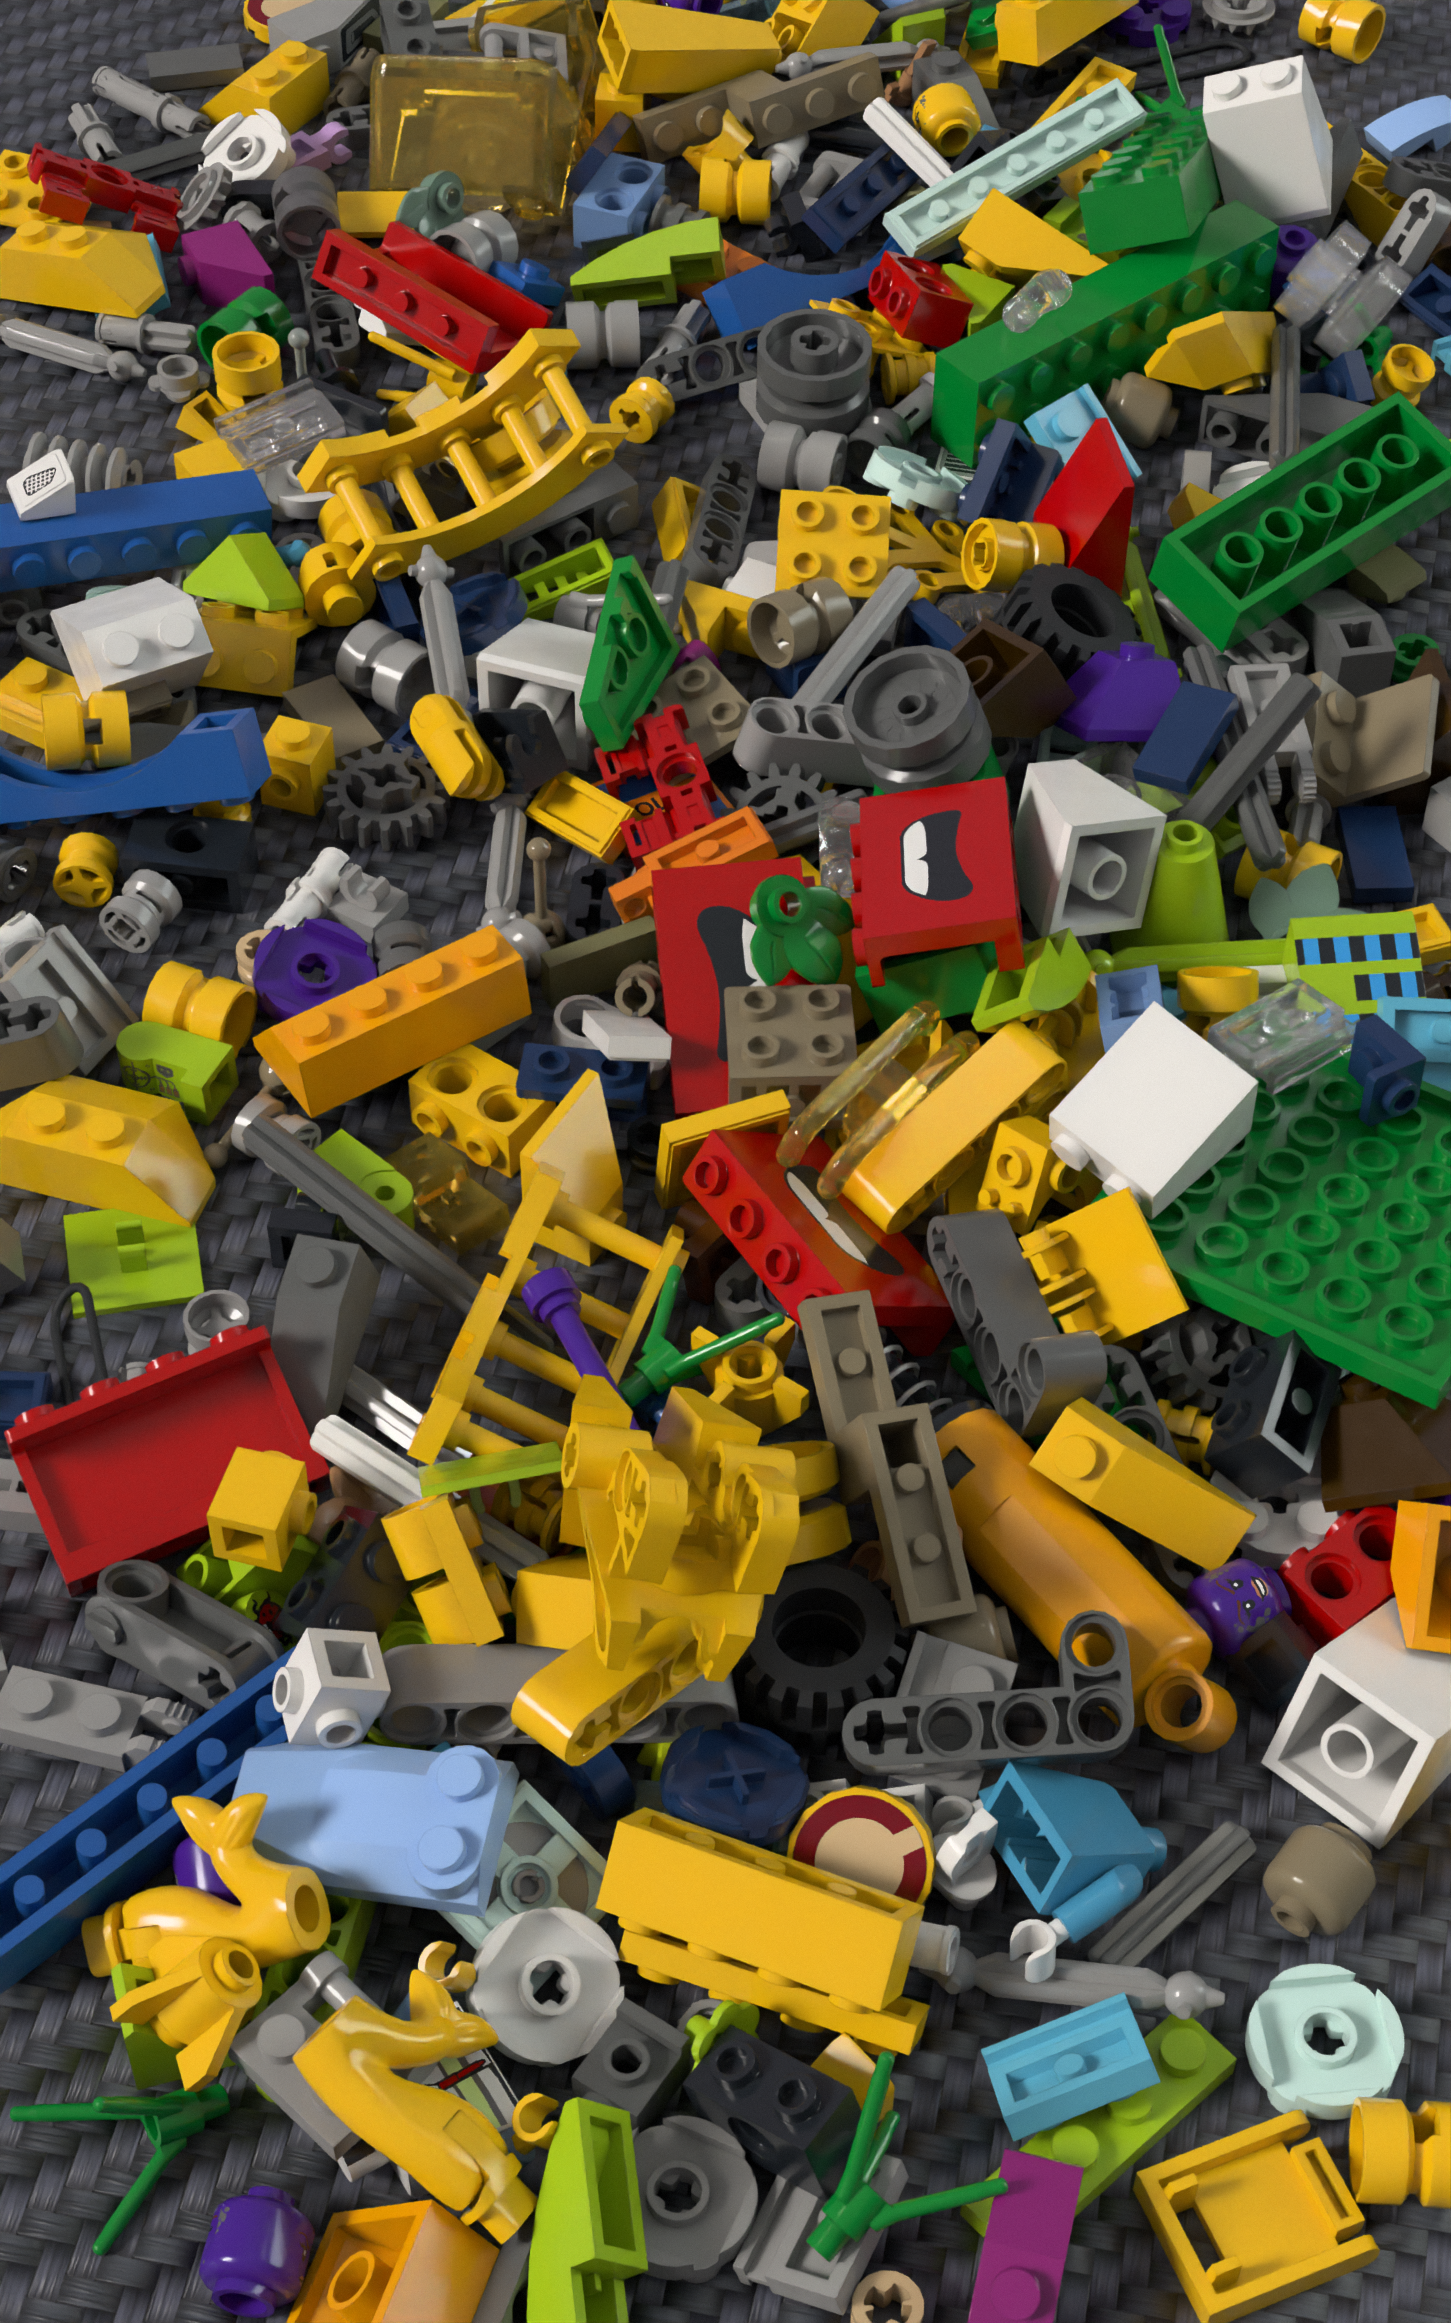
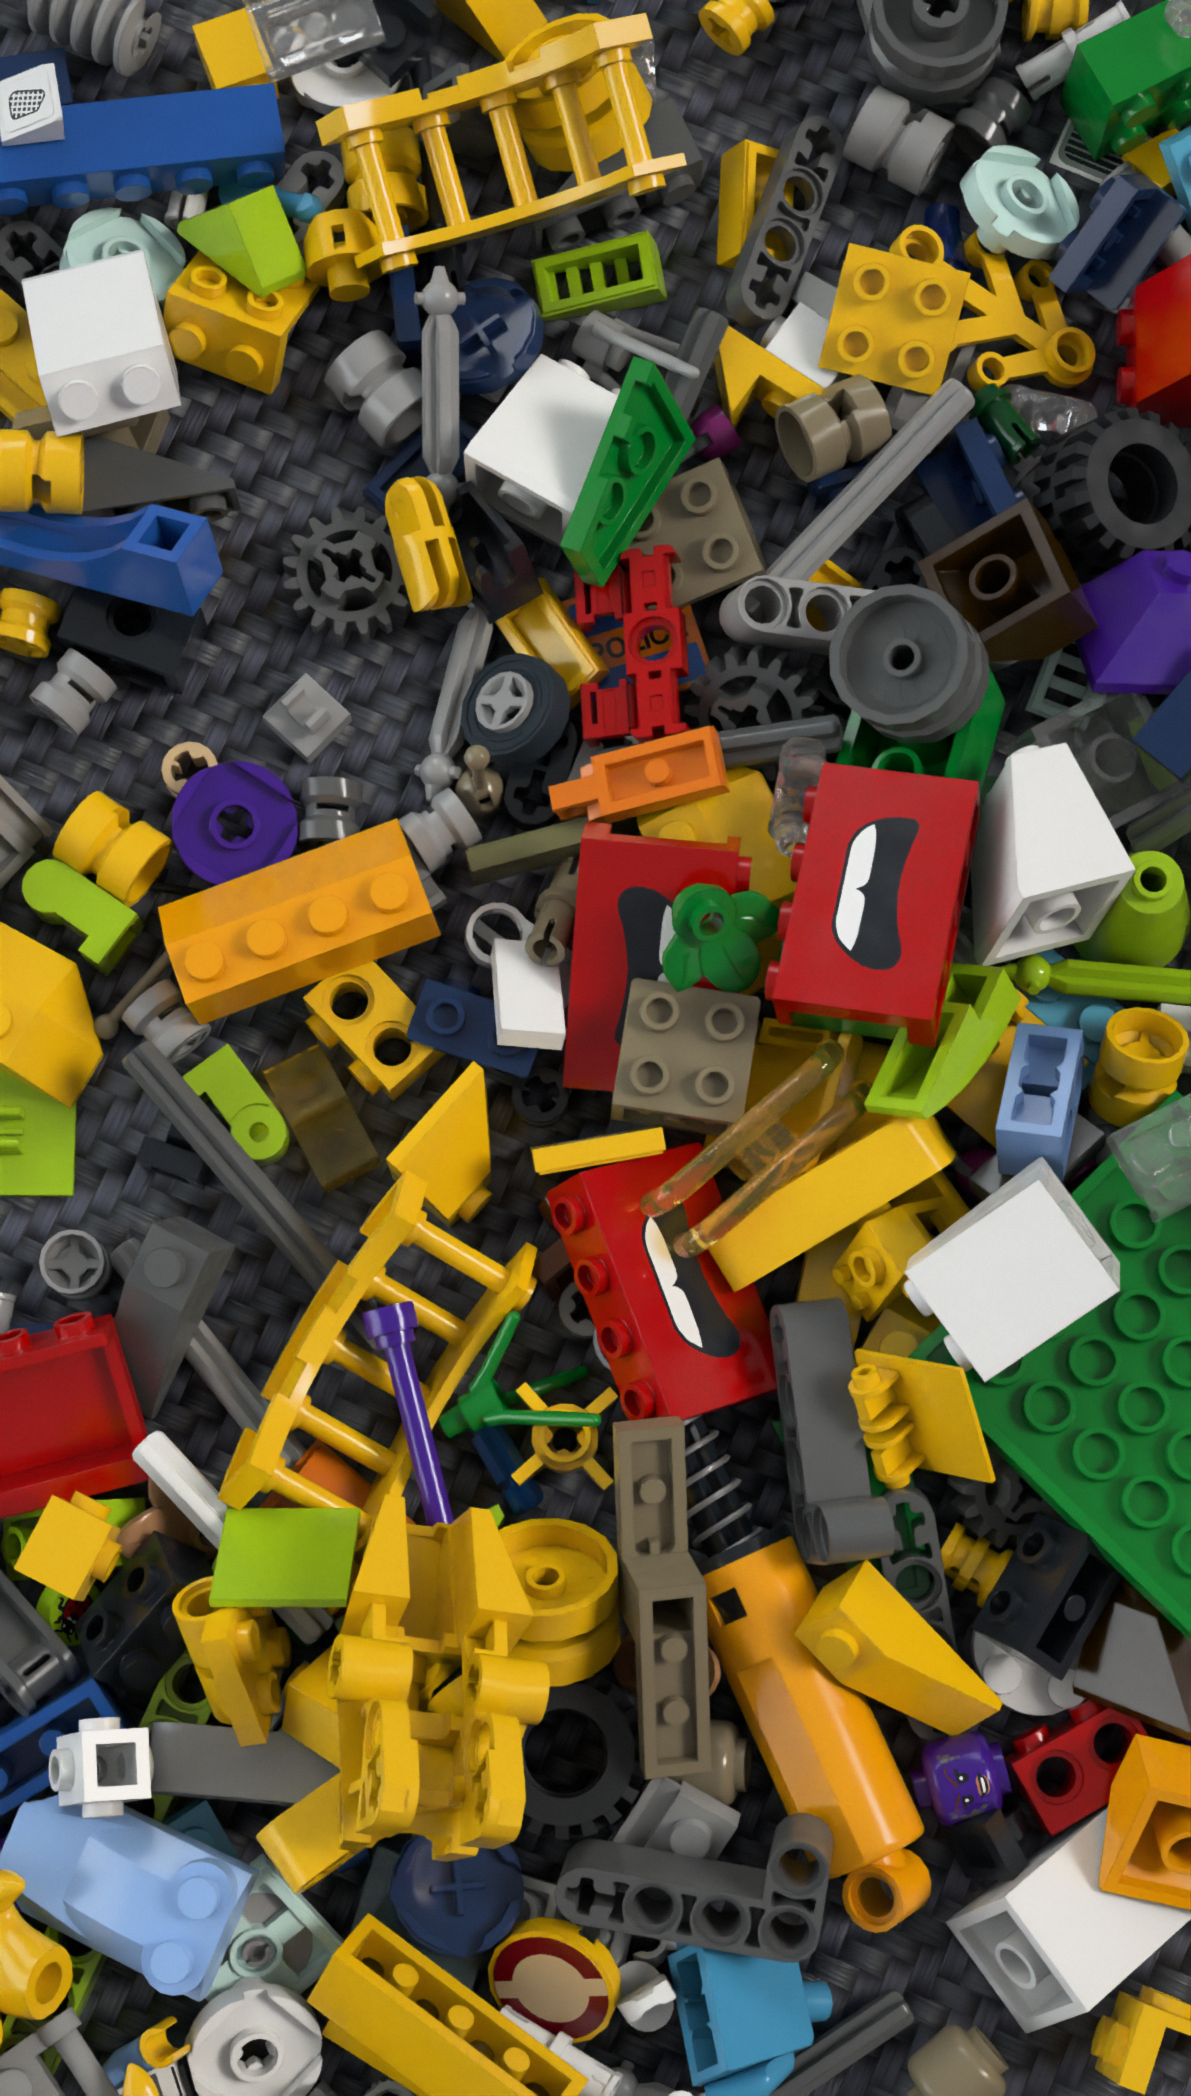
camera: 10 degrees right, 30 degrees up
(299, 763) = (261, 516): yellow brick -> none
(313, 892) = (249, 700): white pin -> none
(330, 705) = (314, 444): dark tan tile -> none
(578, 855) = (521, 688): none -> black wheel
(962, 612) = (1003, 420): none -> dark green pin
(1001, 551) = (1090, 368): yellow wheel -> none

